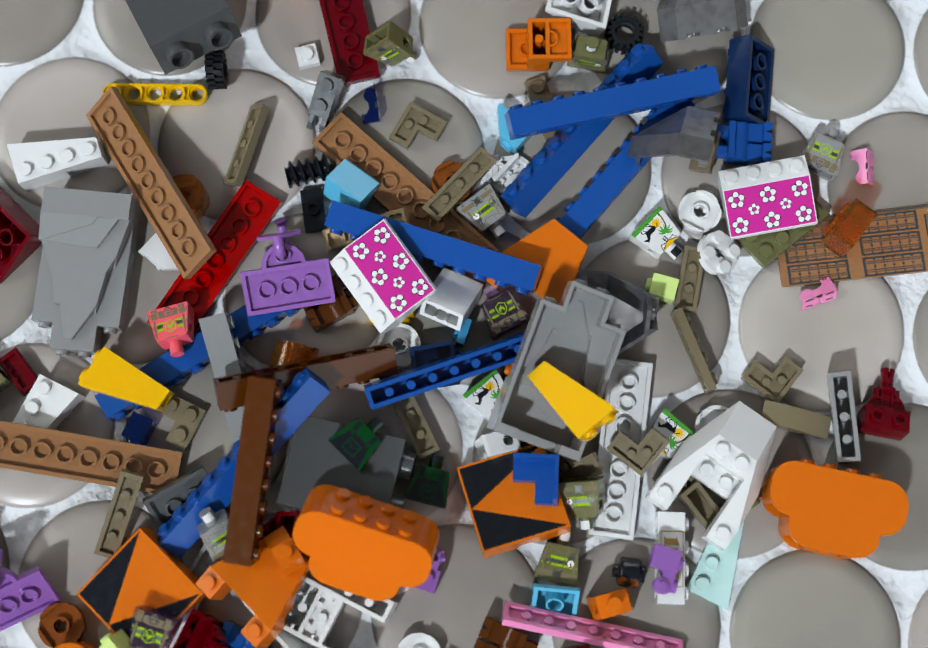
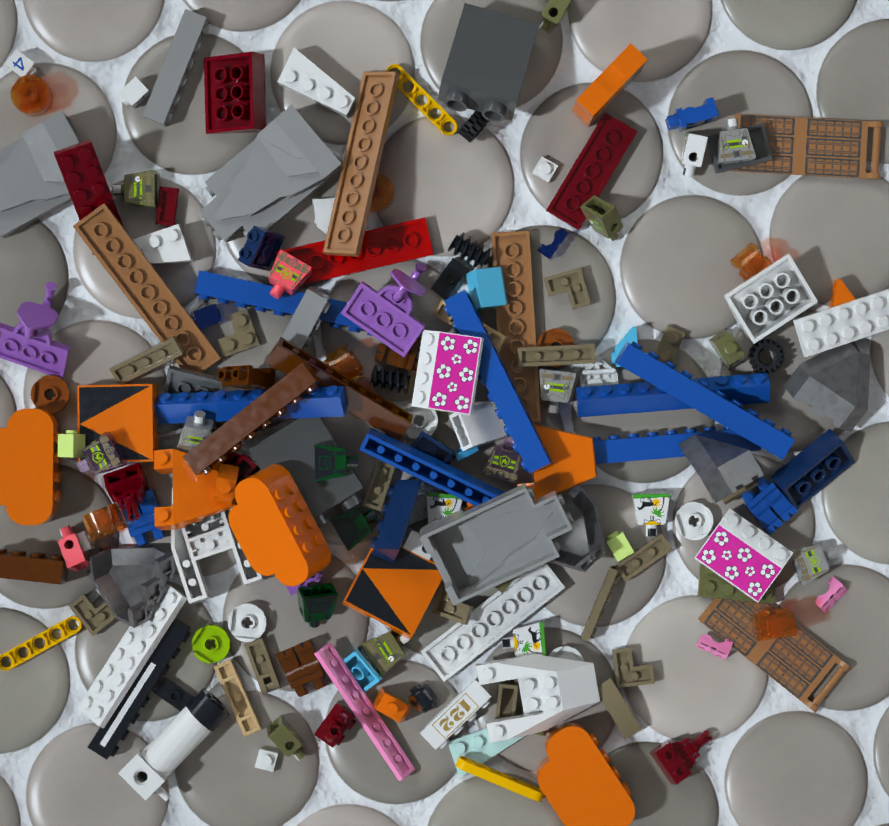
camera: 45 degrees right, 10 degrees up
(123, 381) = (226, 281): yellow slope -> none
(129, 328) = (260, 248): none -> dark blue plate
(214, 442) = (247, 377): none -> reddish brown hips
(246, 145) = (447, 193): dark tan plate -> none
(325, 98) = (527, 212): dark grey hinge -> none
(342, 333) = (390, 379): none -> black piece
(459, 440) = (395, 519): none -> dark blue slope
(461, 578) = (316, 603): none -> dark green torso
(538, 44) = (699, 311): orange bracket -> none
(541, 470) = (427, 589): blue panel -> none
(575, 404) = (484, 567): yellow slope -> none
(583, 498) = (437, 627): olive torso -> none
(641, 455) = (497, 635): dark tan plate -> none
(668, 562) = (449, 716): medium lavender brick -> none
(728, 253) = (686, 563): white plate -> none
(761, 575) = (499, 778): none -> yellow beam
(843, 417) = (648, 736): light grey brick -> none

